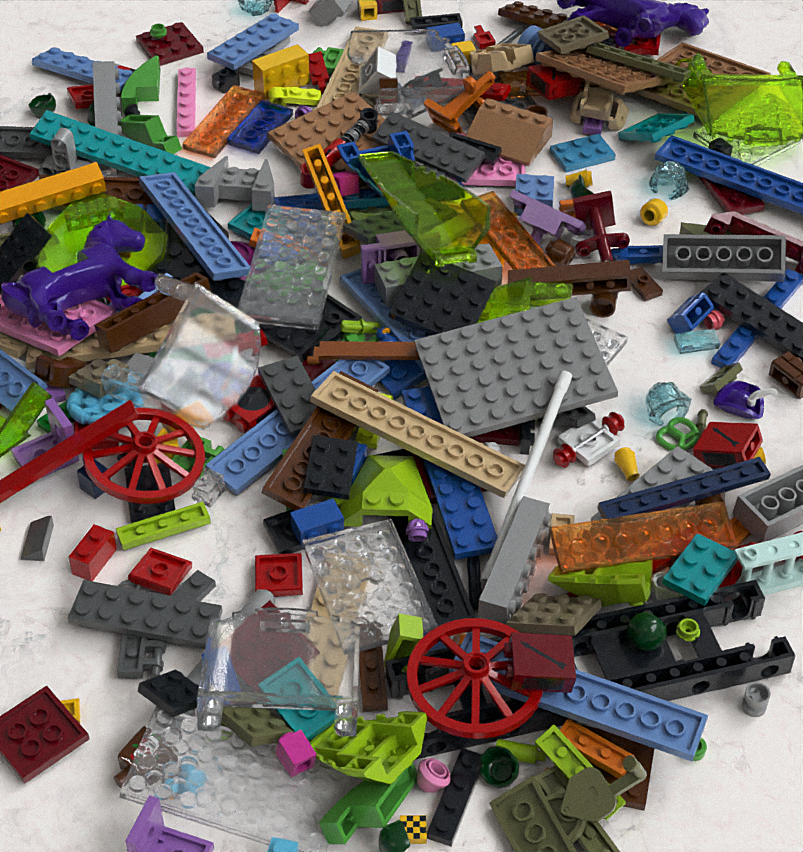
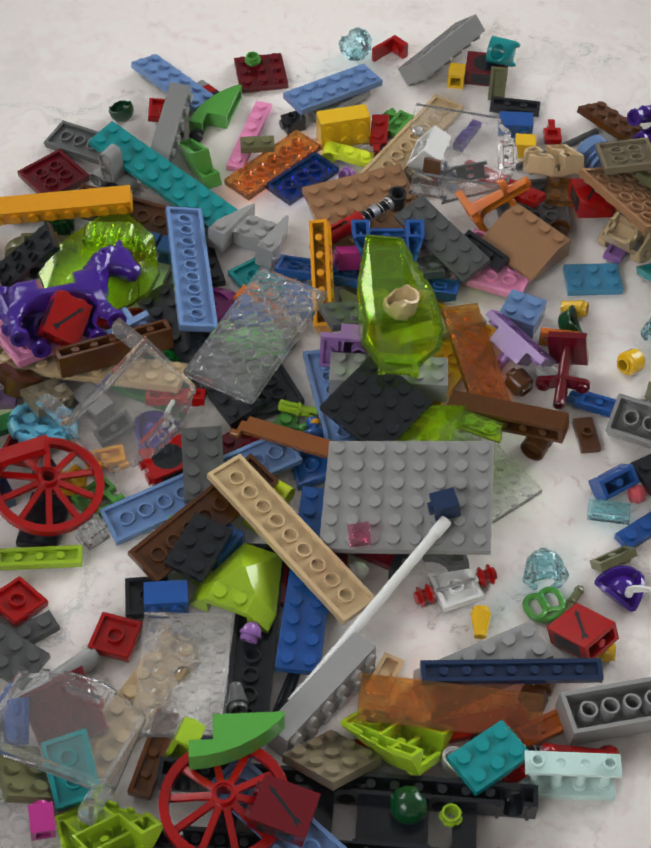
camera: 20 degrees right, 5 degrees up
(92, 295) = (64, 319): none -> red brick
(201, 105) = (257, 144): none -> olive plate
(430, 200) = (401, 303): none -> tan hair
(435, 593) = (237, 699): none -> dark grey cone
(460, 614) = (235, 738): none -> bright green slope
(487, 410) = (359, 534): none -> clear pink plate
(558, 359) = (444, 504): none -> dark blue brick

